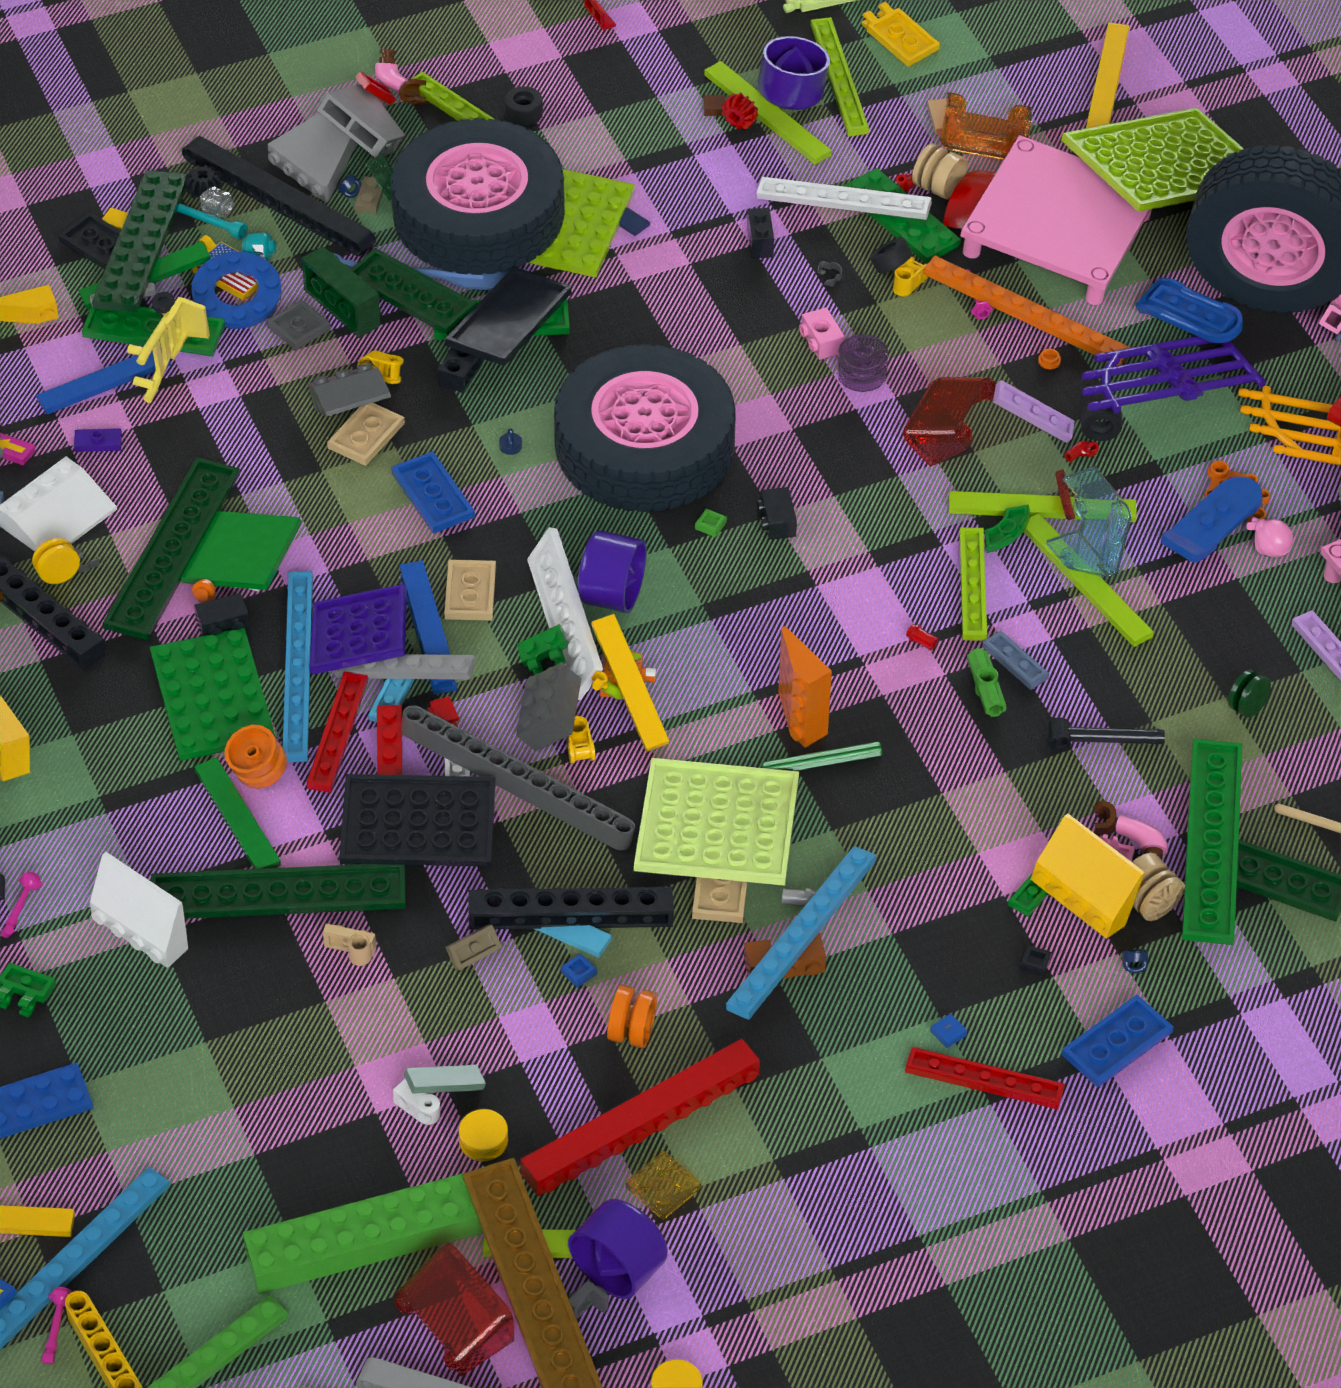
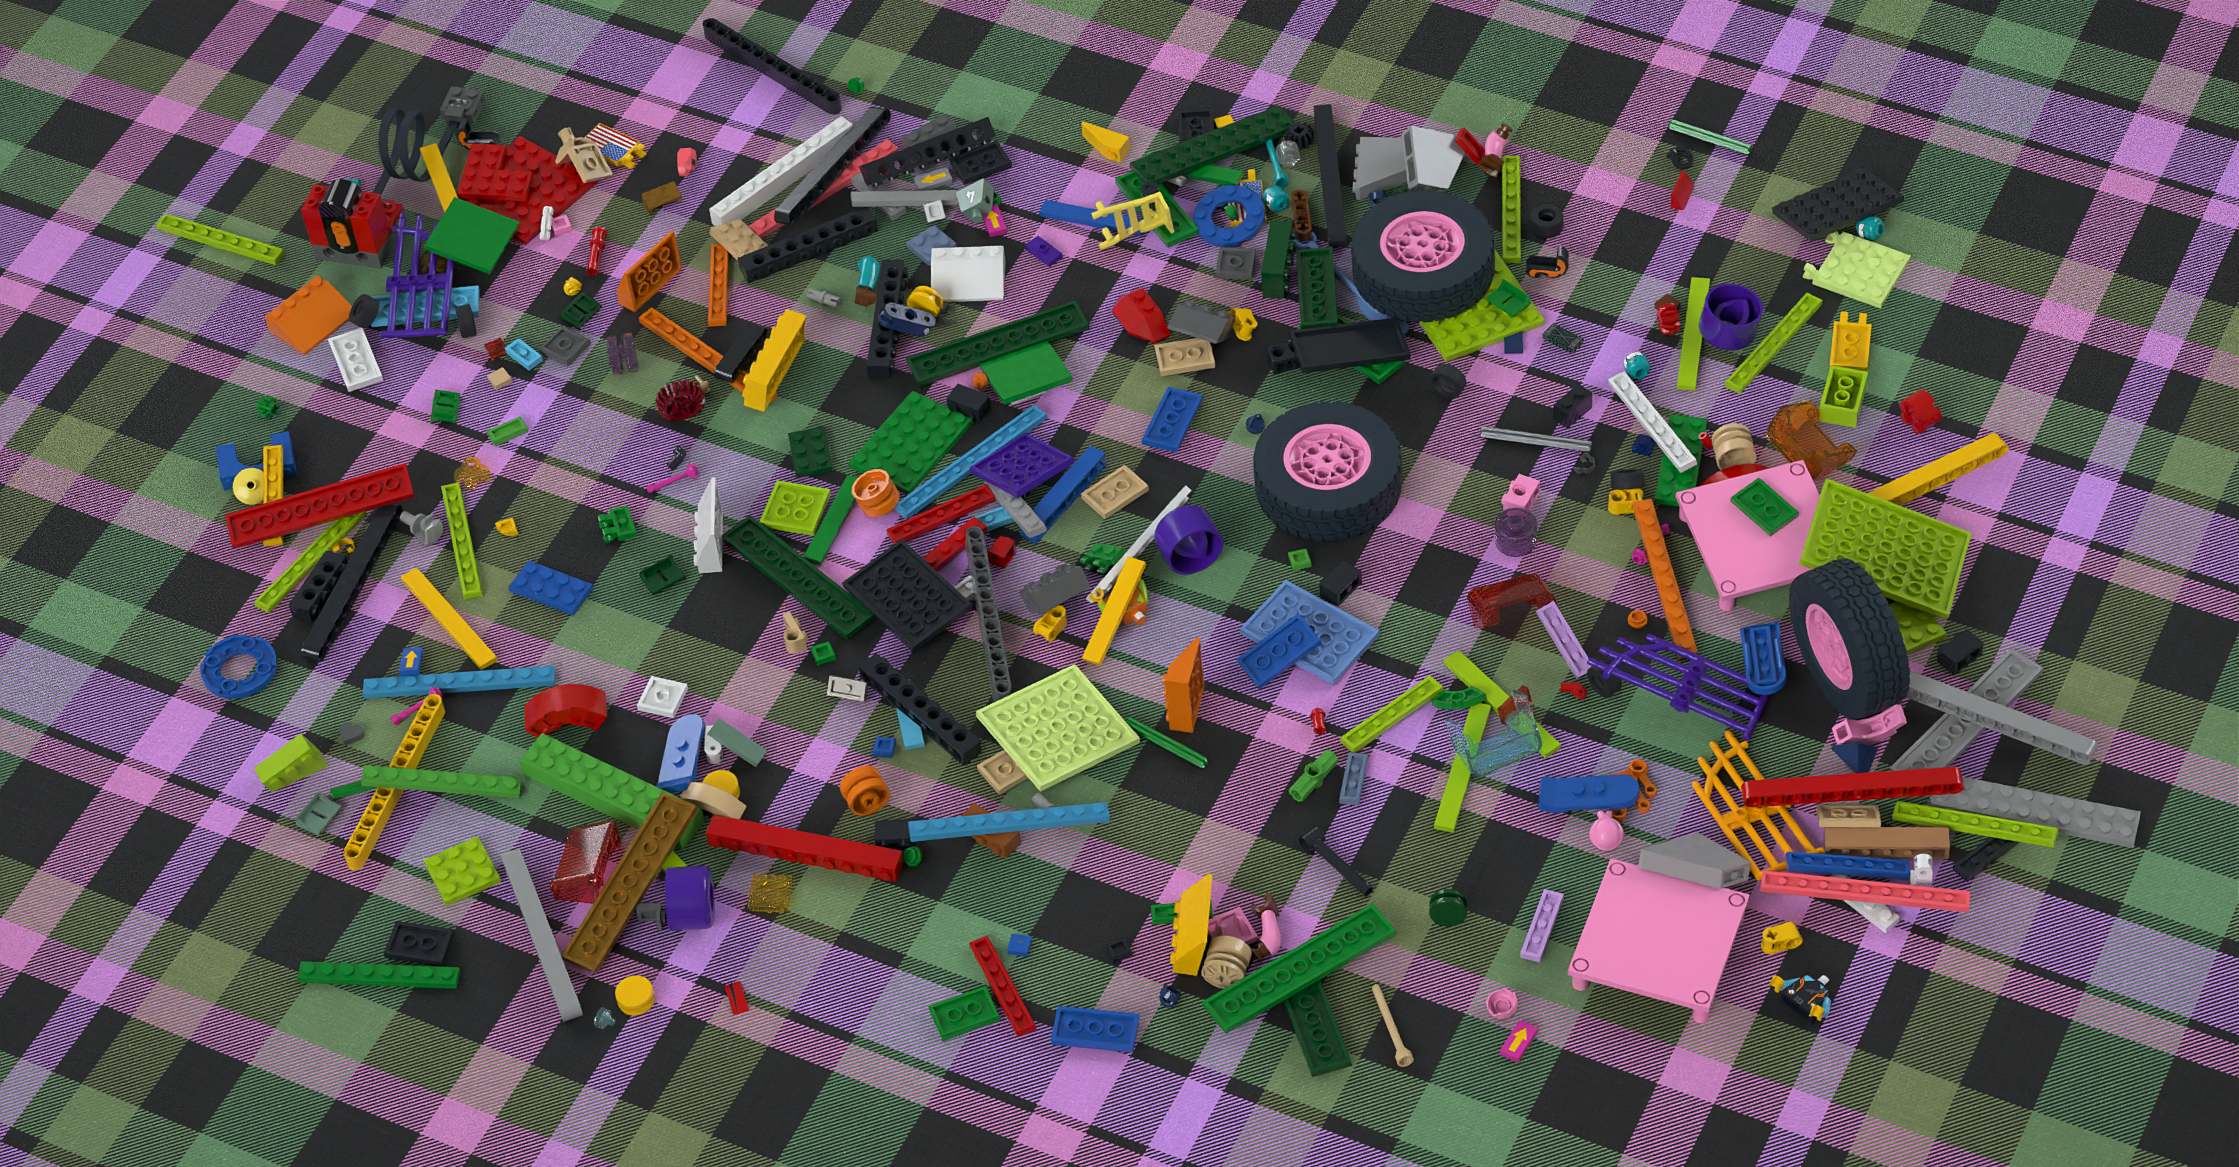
camera: 55 degrees right, 0 degrees up
(63, 585) = (906, 319): none -> dark blue piece
(124, 776) = (810, 452): none -> dark green plate
(139, 987) = (668, 569): none -> dark green piece
(185, 833) = (795, 508): none -> lime plate
(217, 1193) = (565, 705): none -> red panel
(238, 282) = (1231, 211): none -> green plate
(274, 425) = (1141, 316): none -> red wedge
(283, 234) = (1301, 215): none -> reddish brown beam
(302, 1103) = (662, 697): none -> white plate
(403, 937) = (823, 653): none -> green plate
(403, 1135) = (681, 754): none -> piece
(498, 1146) = (713, 800): none -> tan arch
(580, 138) = (1549, 266): none -> black animal
(600, 179) = (1506, 292): none -> green piece
(626, 276) = (1443, 388): none -> black tyre
(668, 189) = (1563, 338): none -> tile
(708, 1032) = (893, 834): none -> black brick
(750, 1035) = (912, 856): none -> green plate
(763, 282) = (1537, 439): none -> axle
(764, 164) = (1636, 365): none -> teal head
(767, 1302) = (736, 998): none -> red sticker
(809, 573) = (1341, 634): none -> medium blue plate
(817, 602) = (1278, 651): none -> blue plate
(855, 224) = (1643, 445): none -> clear blue plate
(960, 72) = (1843, 396): none -> lime brick
(987, 1130) = (964, 1013): none -> green tile
(1033, 44) = (1920, 411): none -> red brick
(1044, 190) = (1764, 506): none -> green tile

